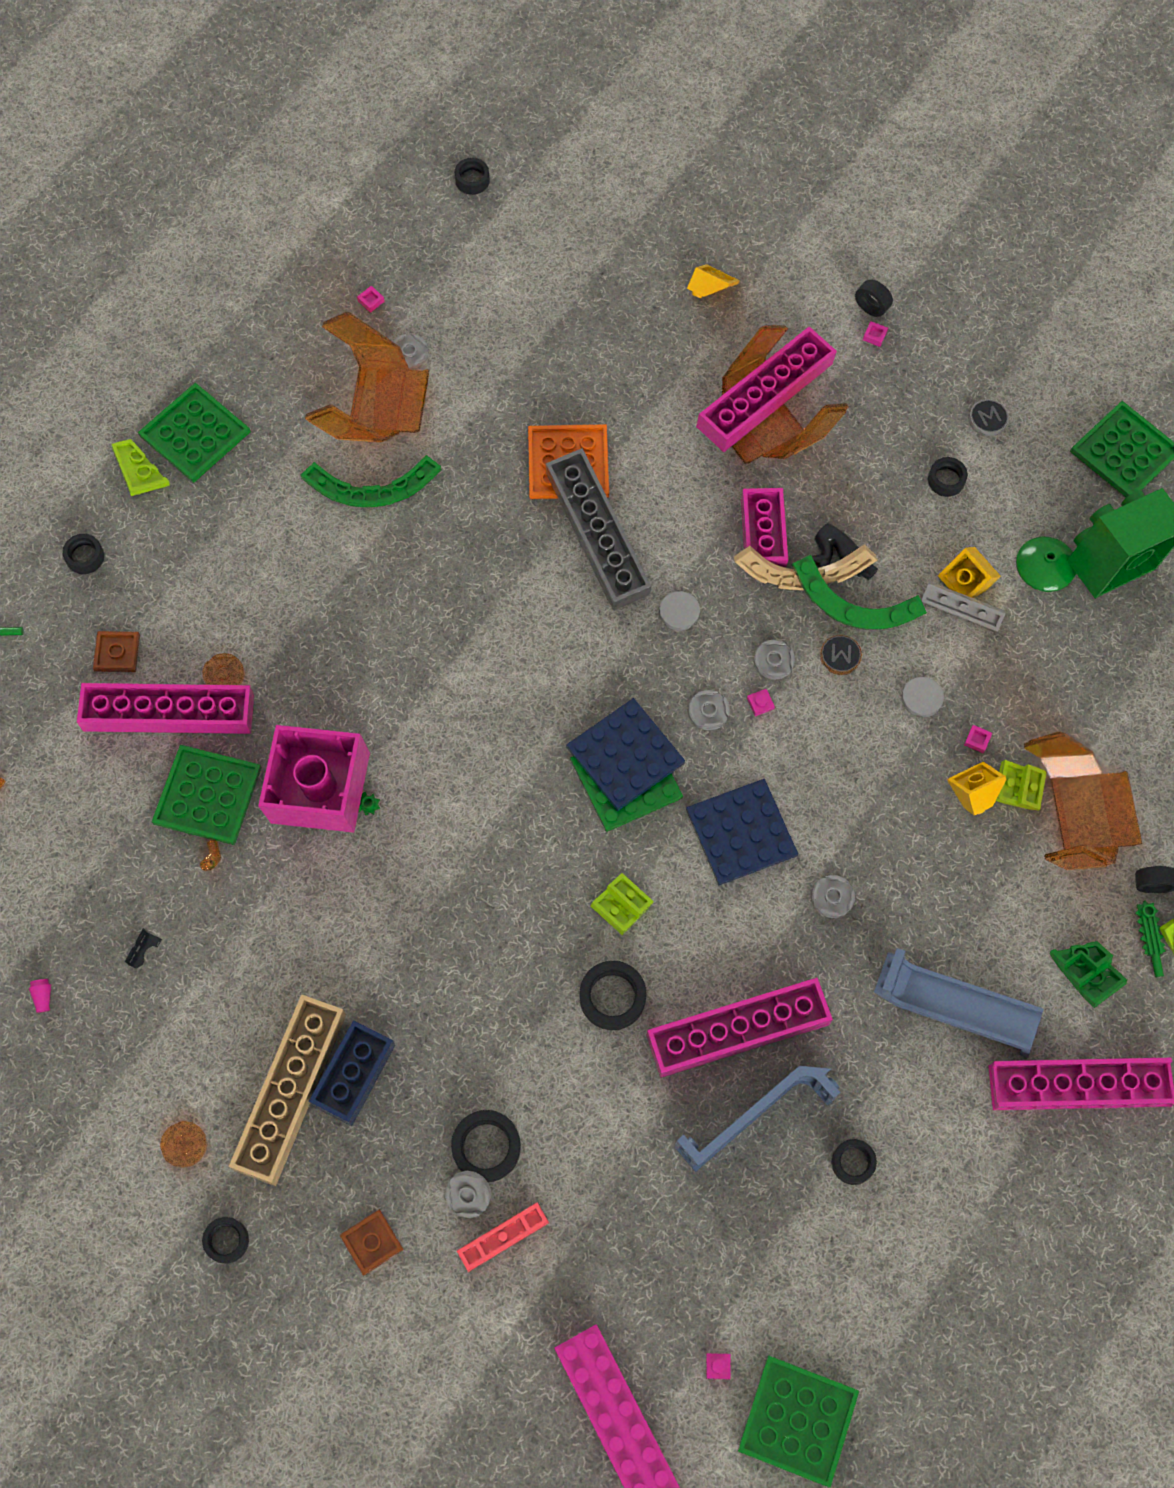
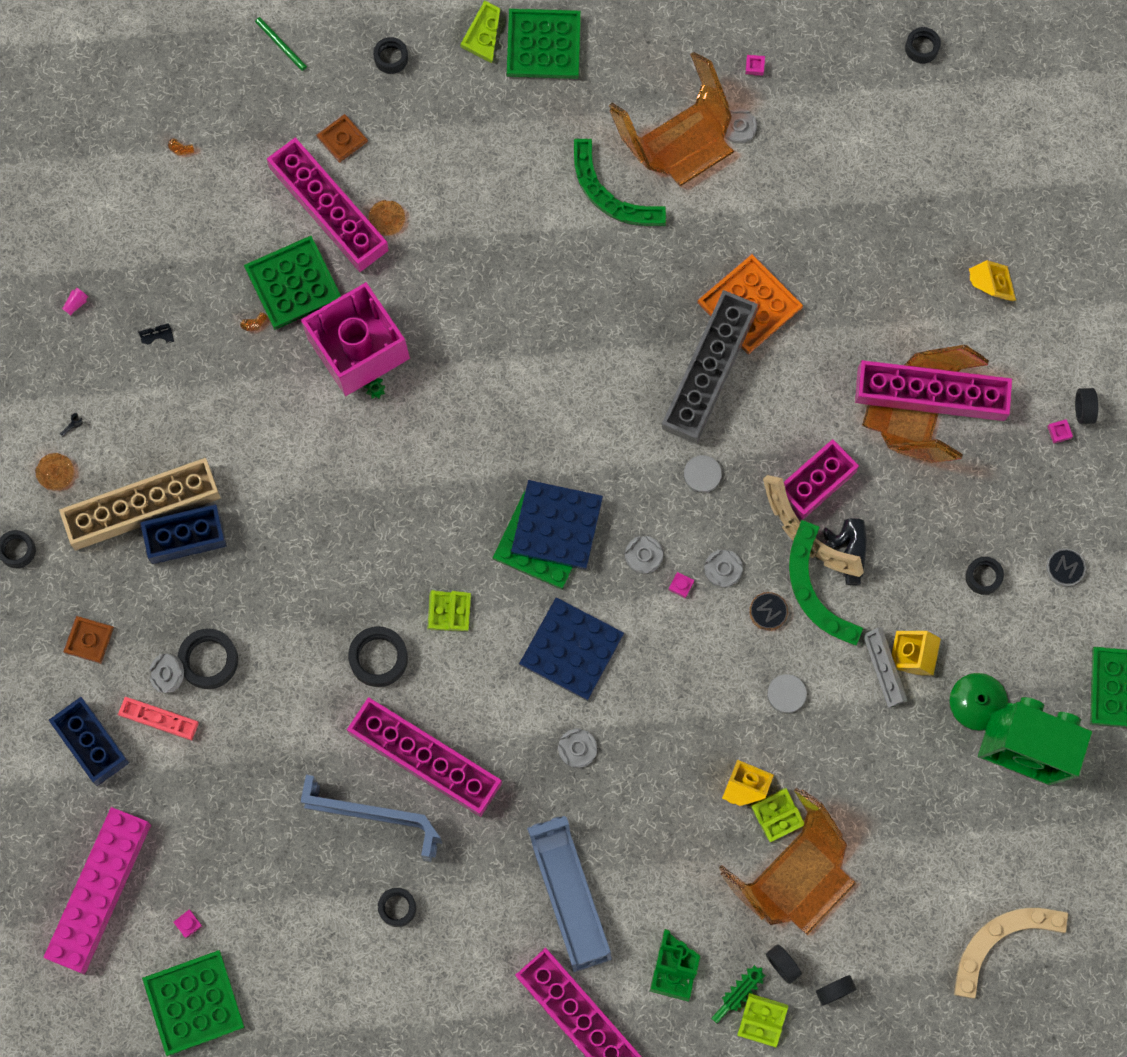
camera: 50 degrees right, 5 degrees up
(154, 1093) = (72, 424): none -> black hand
(471, 1318) = (89, 741): none -> dark blue brick
(978, 739) = (786, 757): dark pink plate -> none

